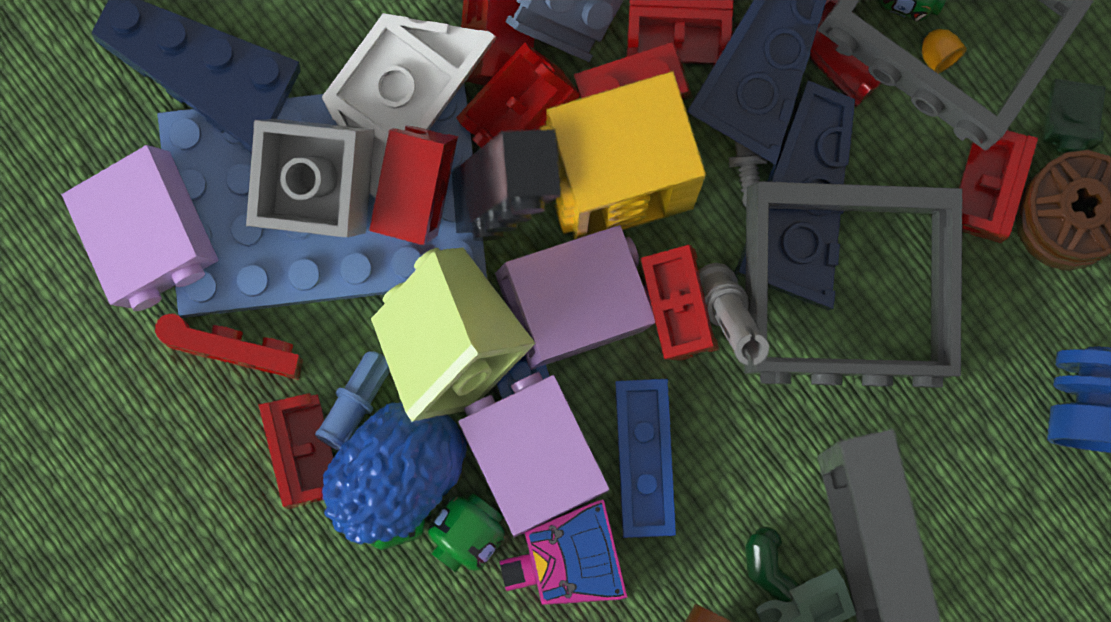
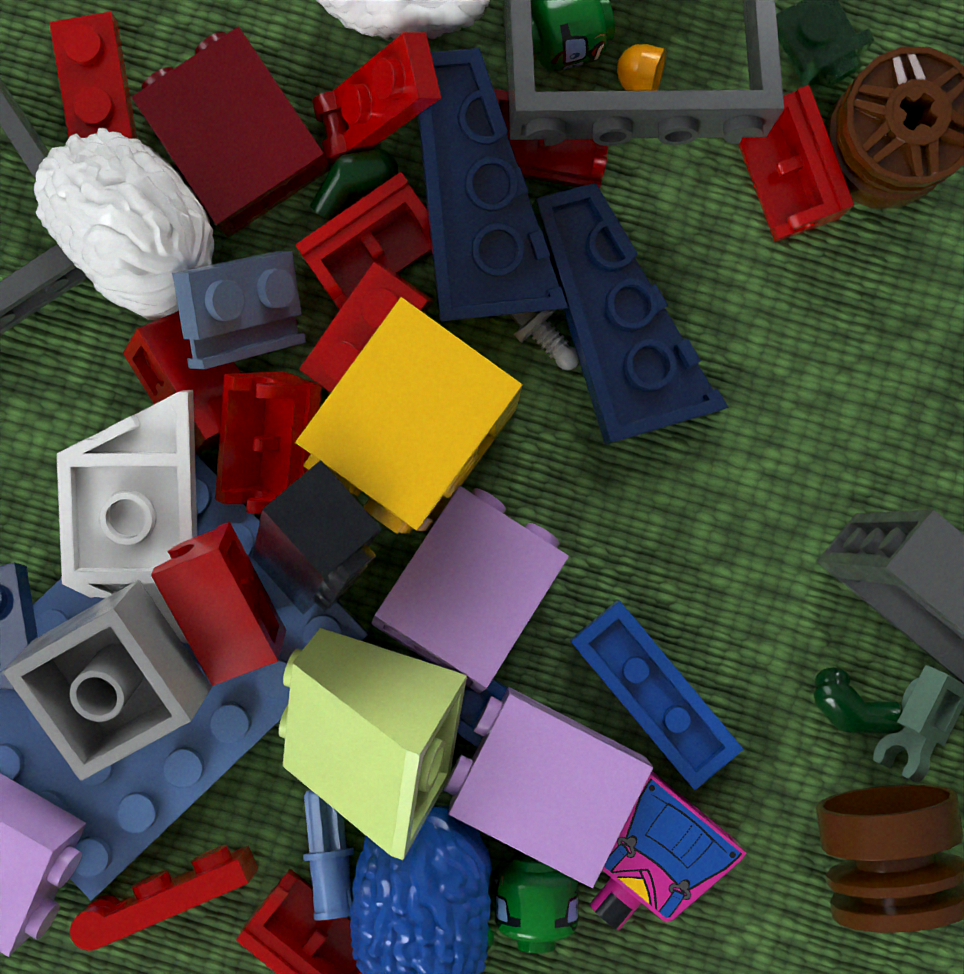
camera: 30 degrees left, 5 degrees up
(678, 303) = (577, 520): red hinge -> none
(728, 308) = (627, 488): light grey pin -> none
(946, 278) = (826, 308): dark grey window -> none

